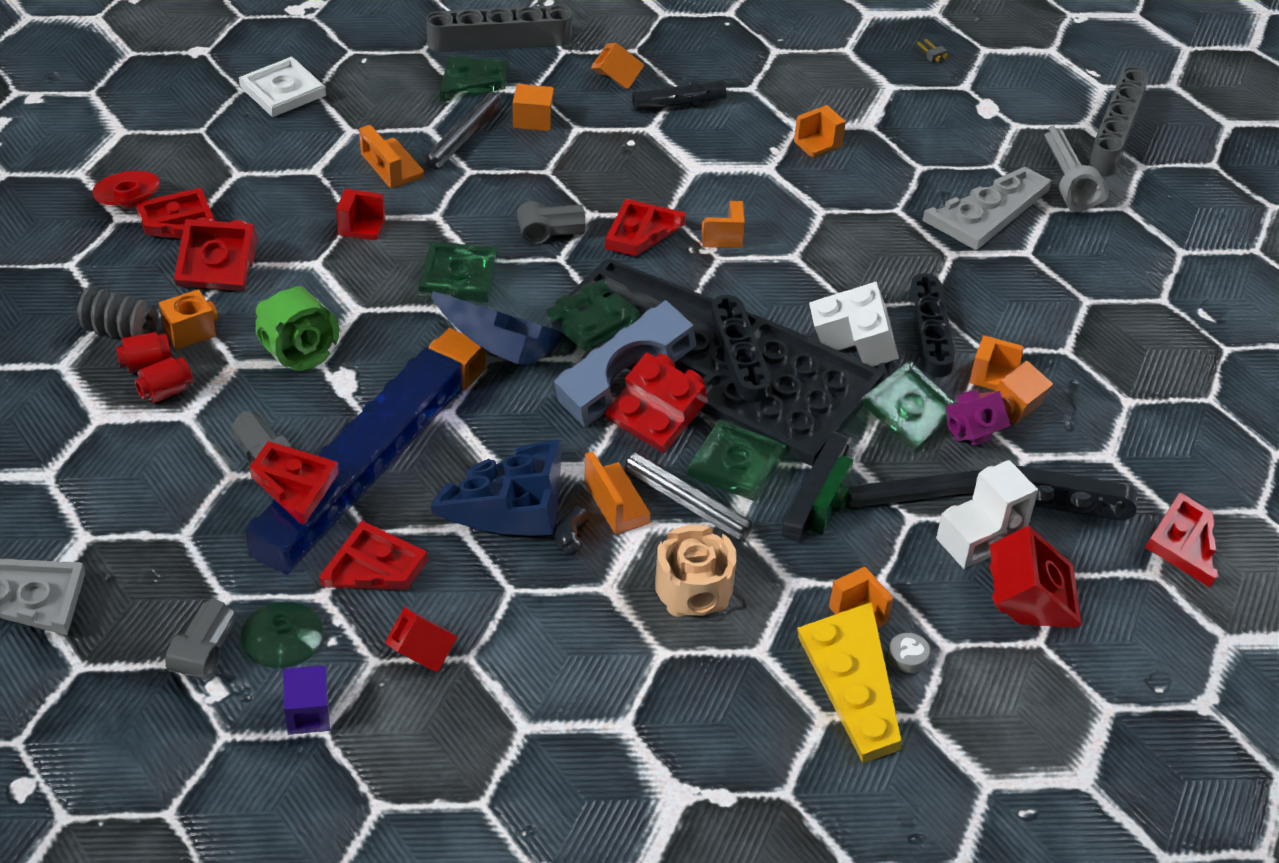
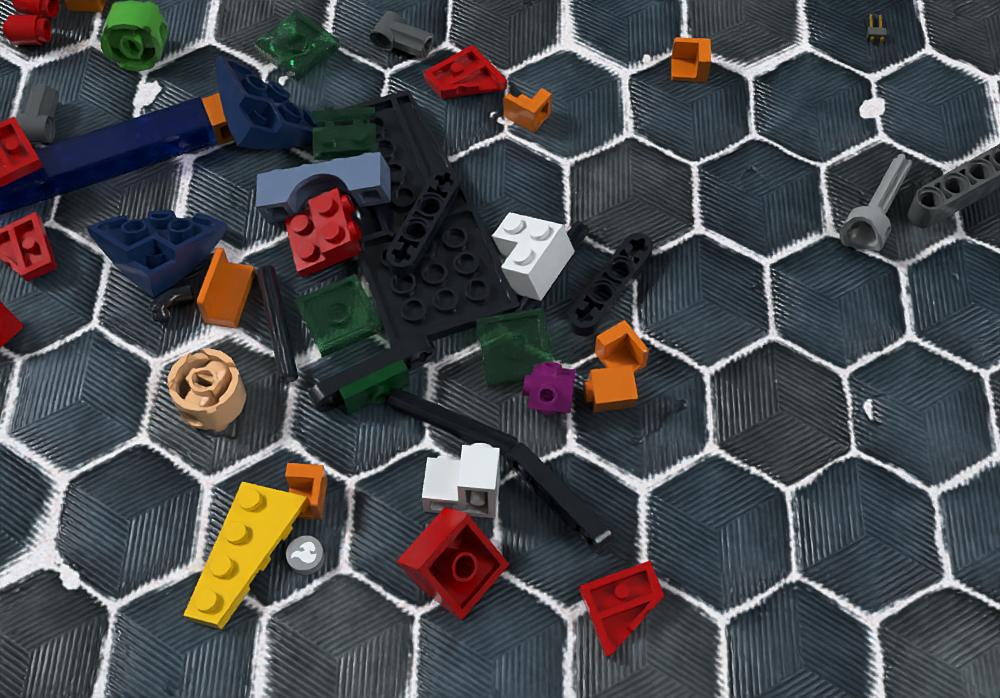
camera: 40 degrees right, 15 degrees up
(988, 209) = (756, 206): light grey wing -> none

